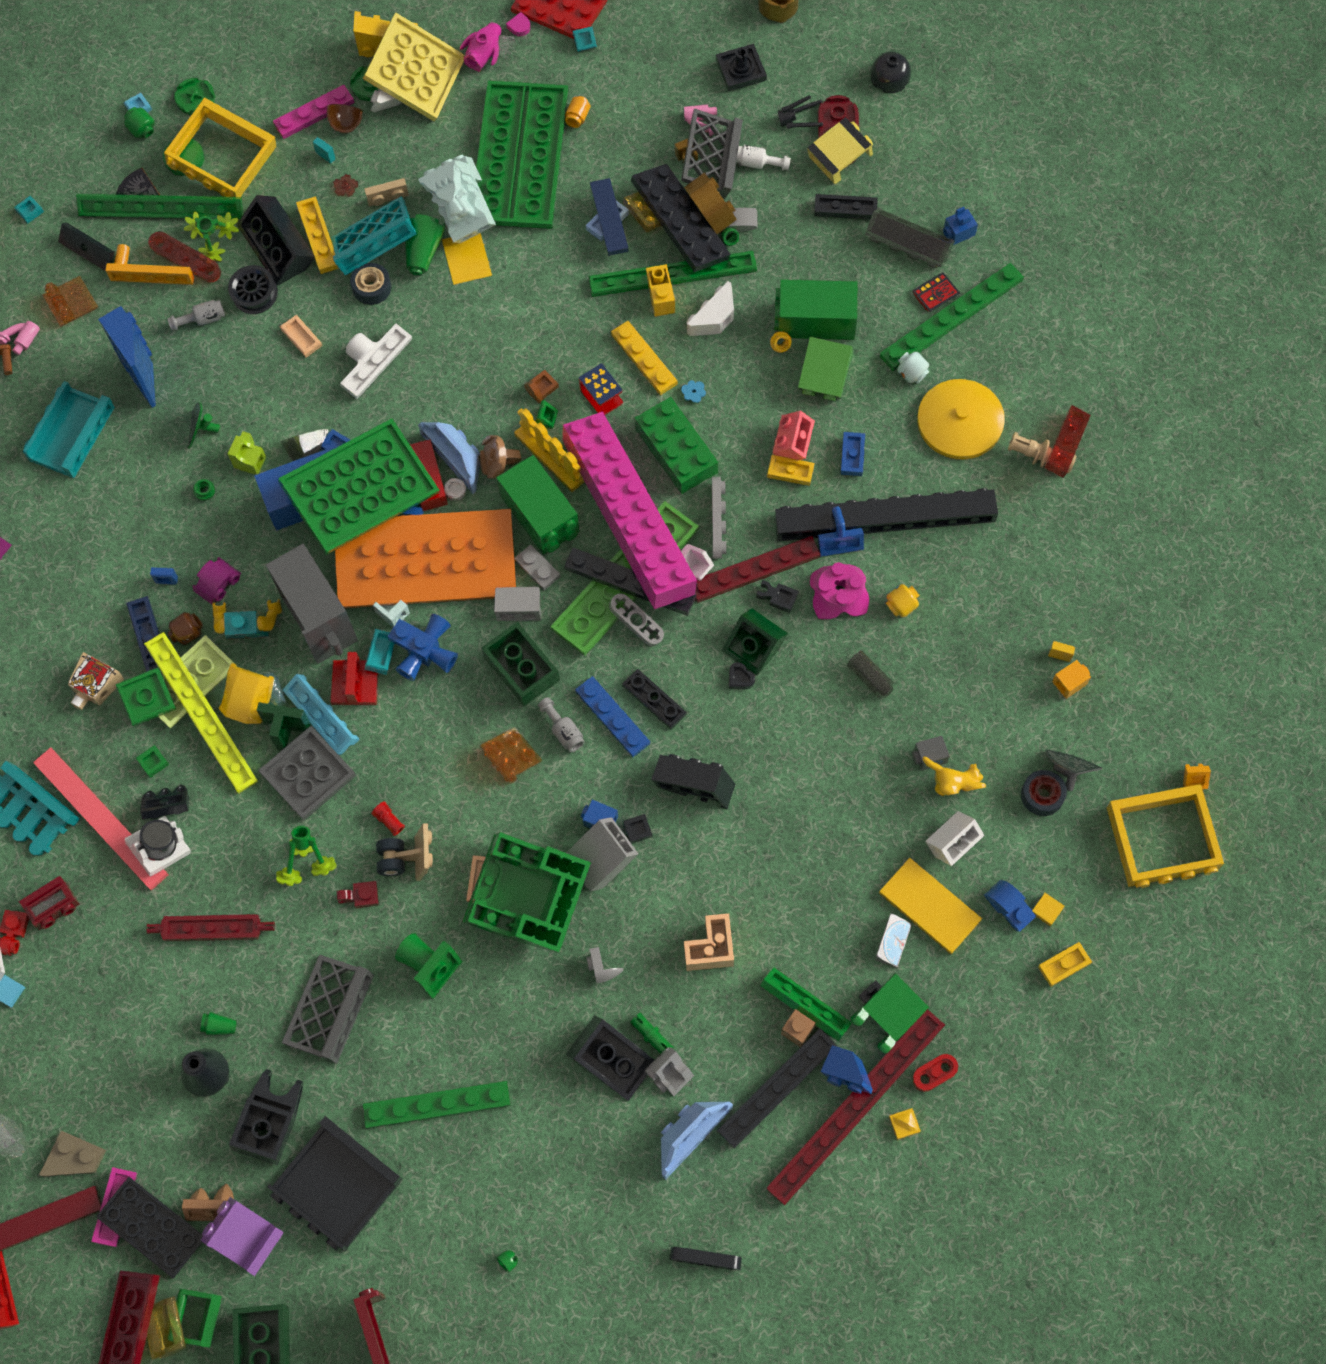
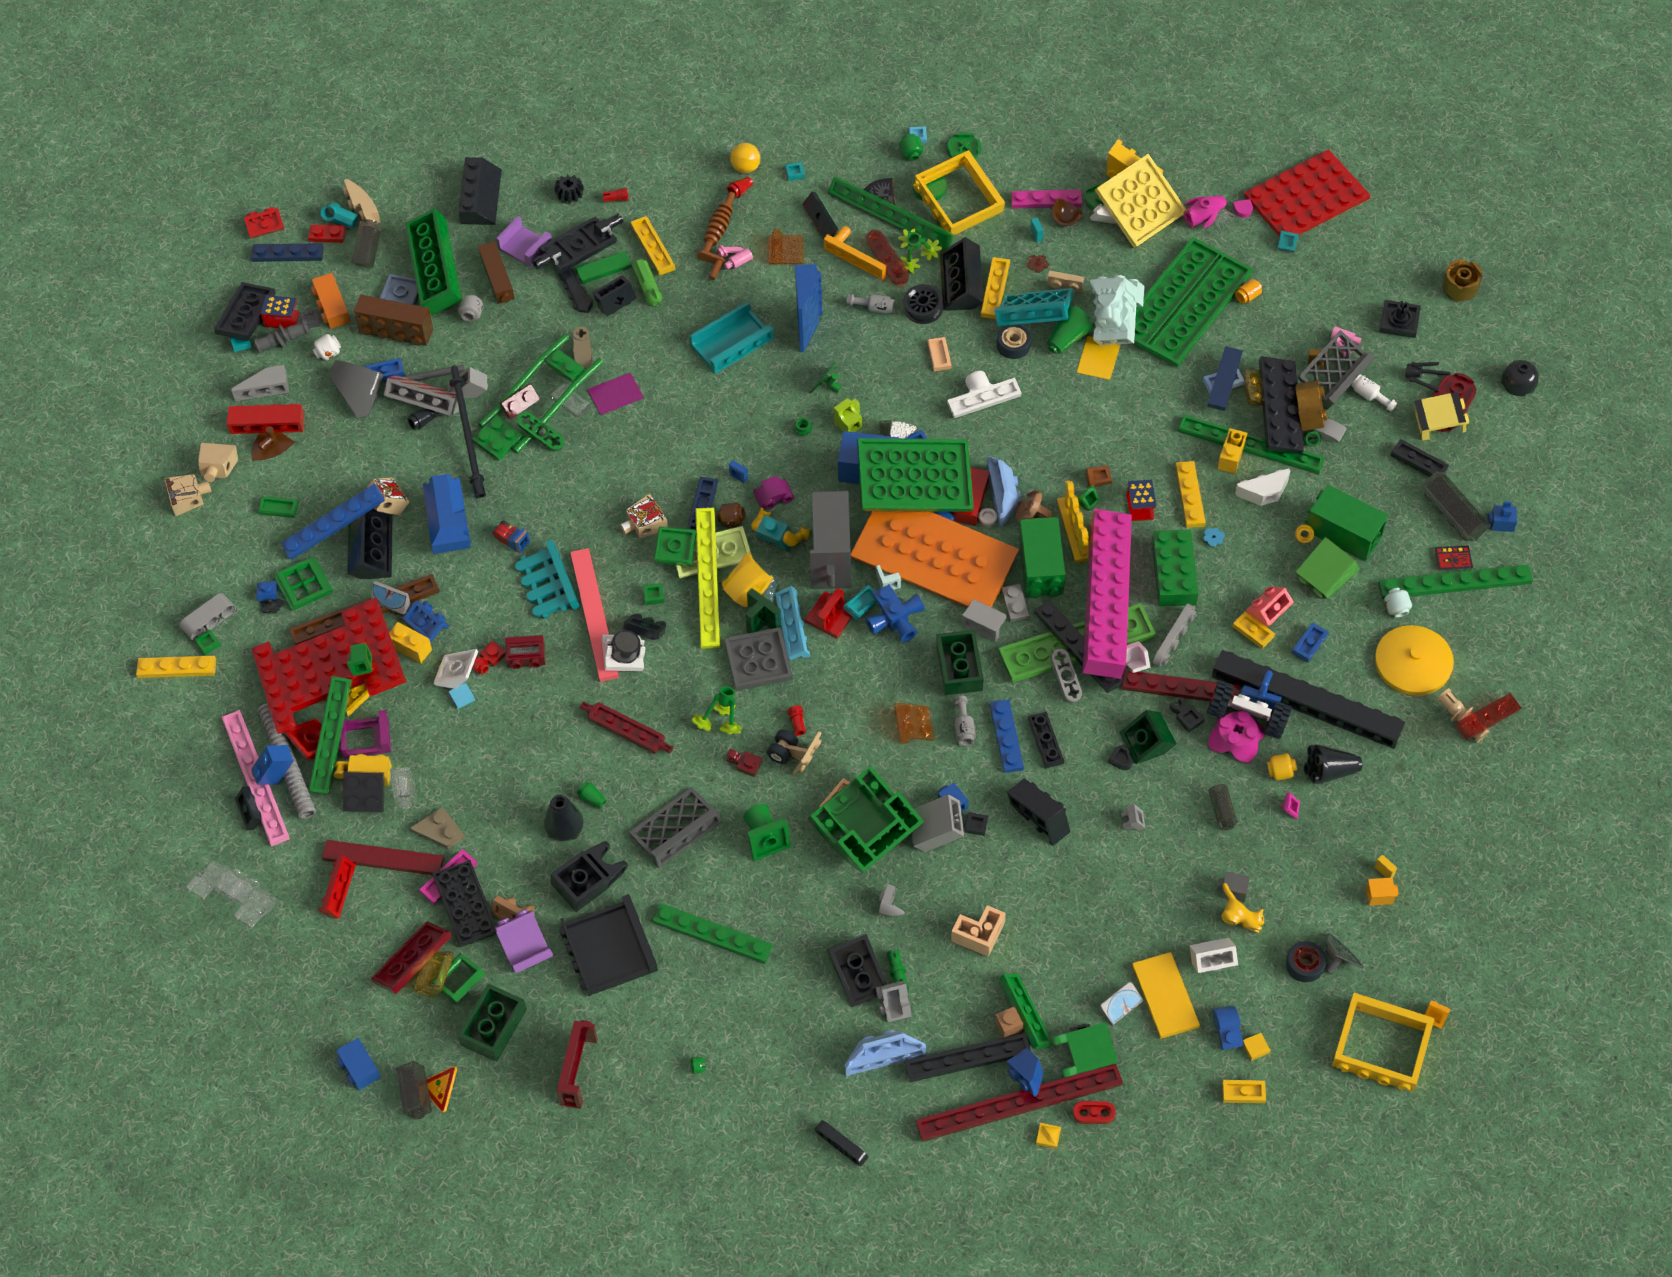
camera: 30 degrees right, 10 degrees down
(792, 733) = (1135, 816): none -> light grey tile
(869, 551) = (1276, 720): none -> black plate
(933, 636) = (1291, 805): none -> dark pink slope
(947, 573) = (1330, 764): none -> black cone

